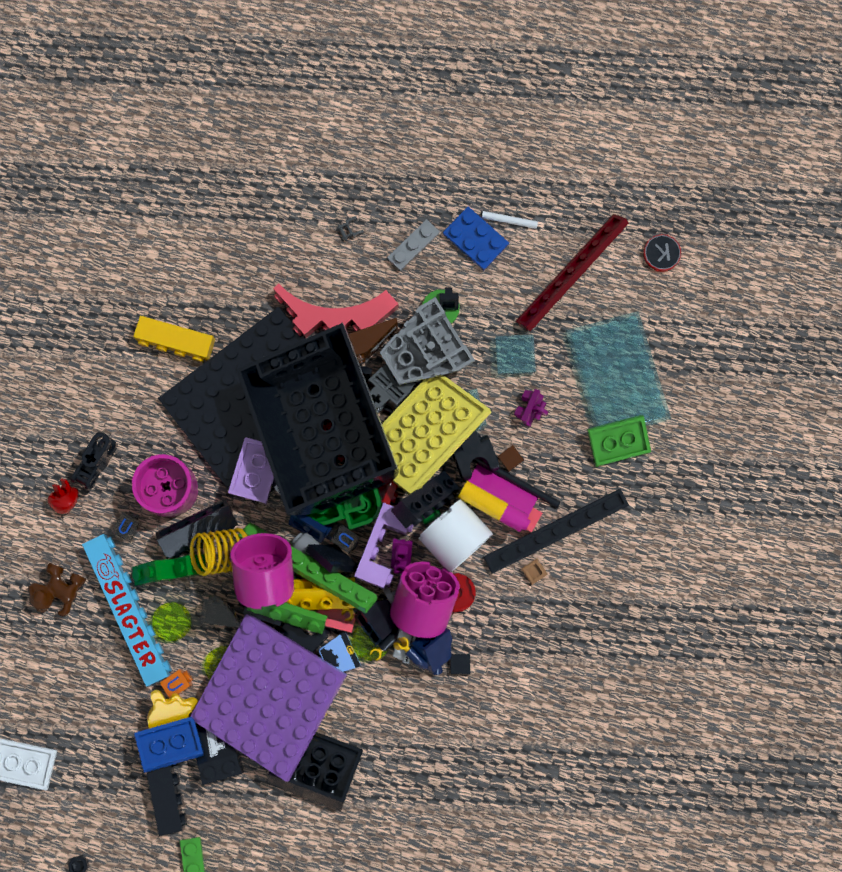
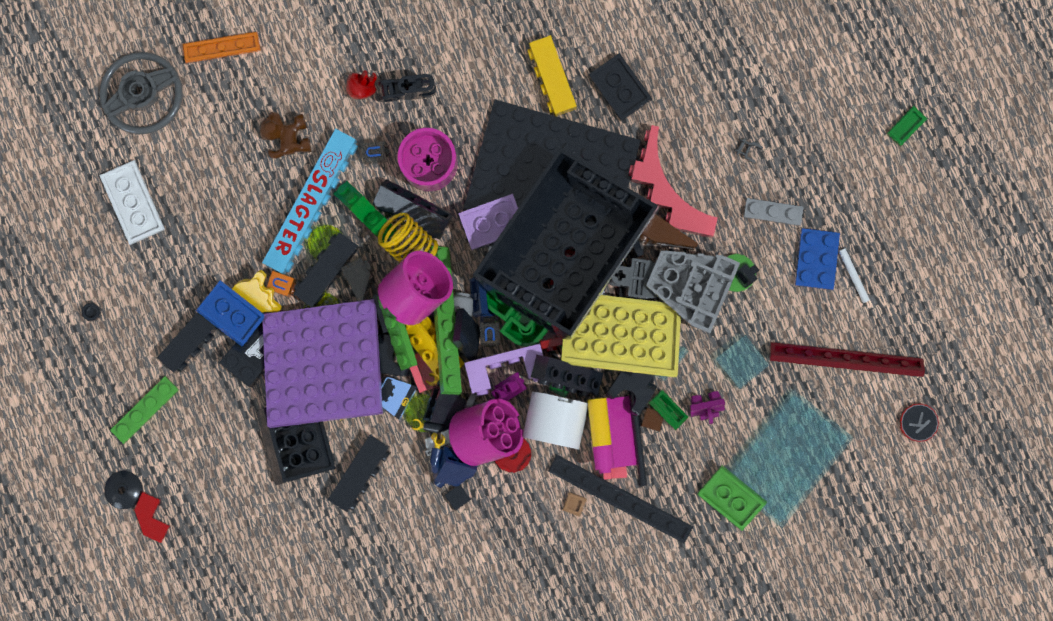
camera: 60 degrees right, 5 degrees up
(193, 637) = (326, 270): none -> black brick
(224, 292) = (620, 87): none -> black plate
(381, 732) = (359, 473): none -> black brick
(421, 96) = (907, 126): none -> green tile
(512, 440) = (671, 412): none -> green tile

